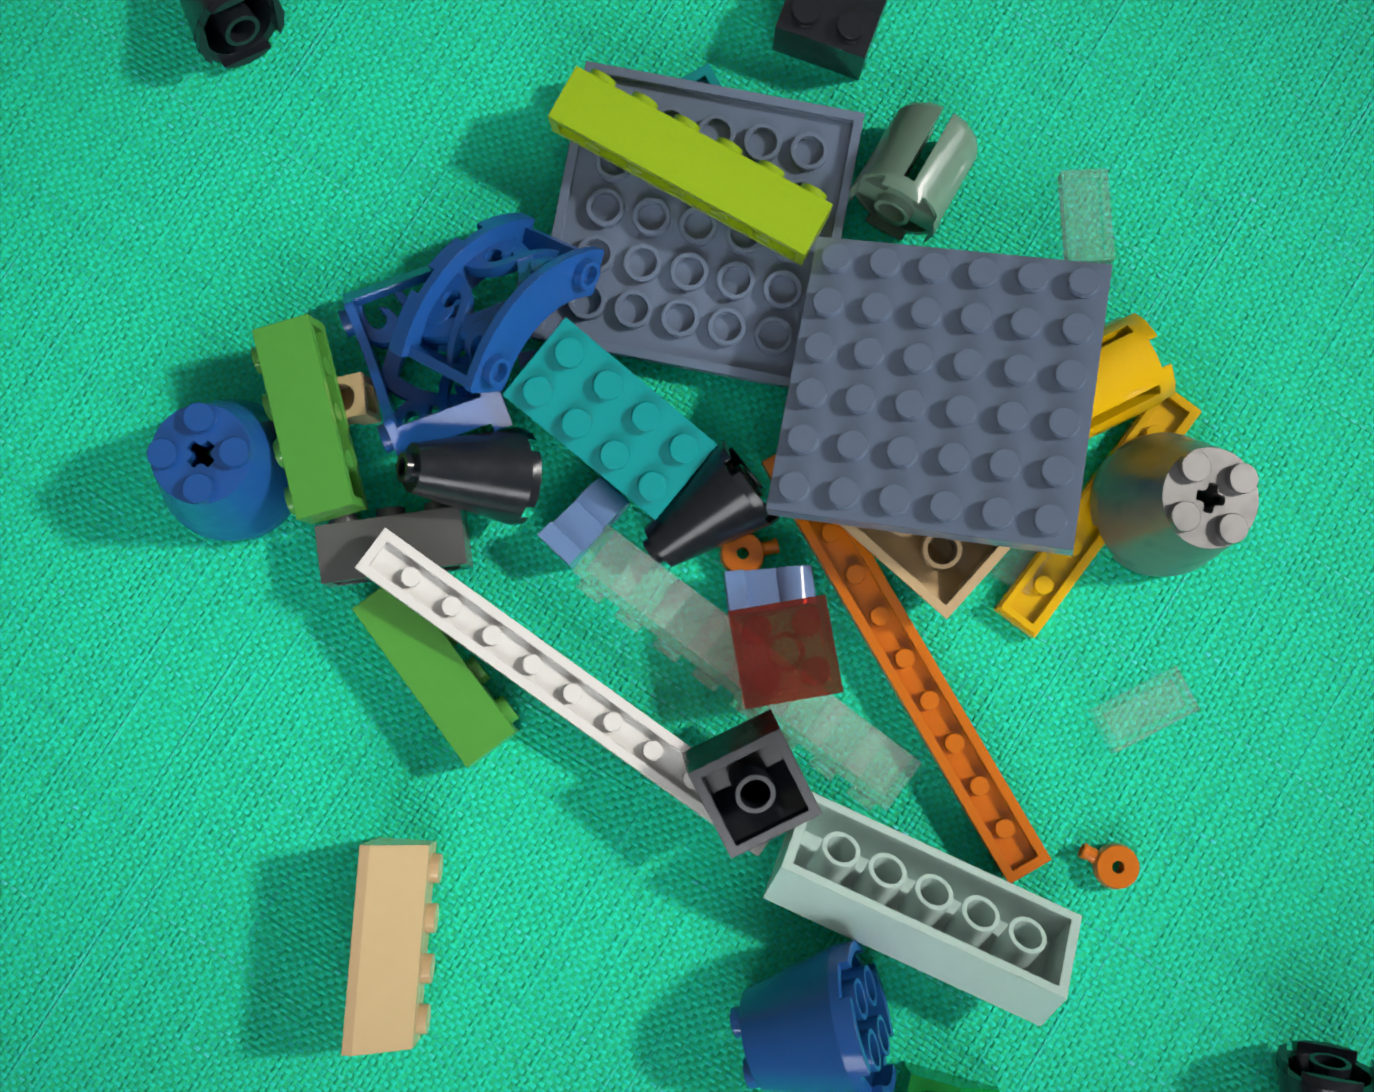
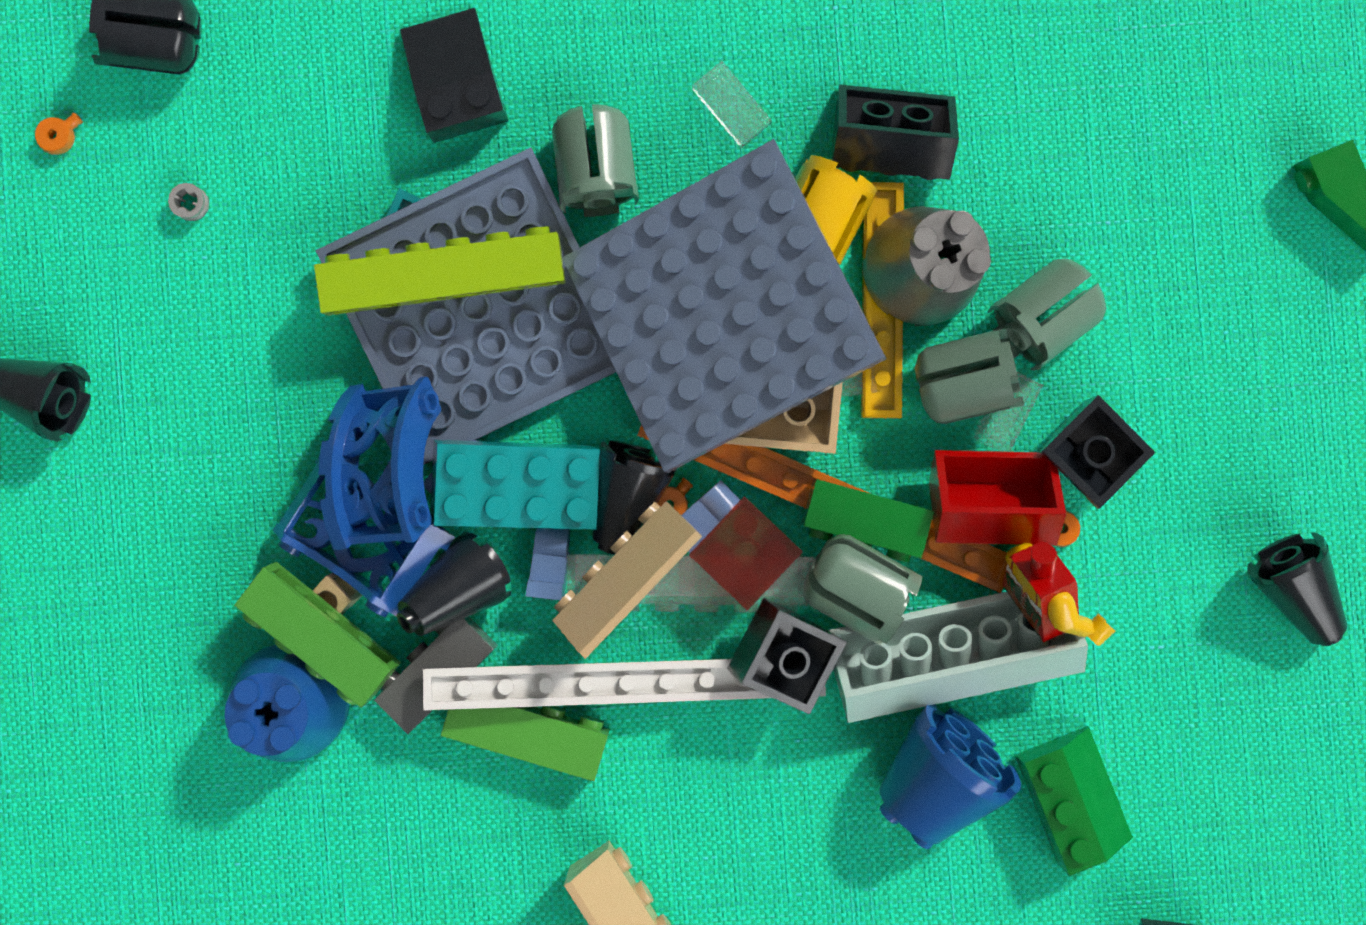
camera: 35 degrees left, 5 degrees up
(651, 585) = (626, 578): none -> tan slope
(876, 767) = (860, 587): none -> sand green cylinder
(929, 709) = (868, 518): none -> green brick
(1062, 916) = (1049, 594): none -> torso
(1076, 783) = (995, 498): none -> red piece
(1134, 644) = (968, 377): none -> sand green cylinder
(1212, 812) = (1096, 450): none -> black slope
(1229, 357) = (895, 132): none -> black slope
(1244, 664) = (1047, 339): none -> sand green cylinder

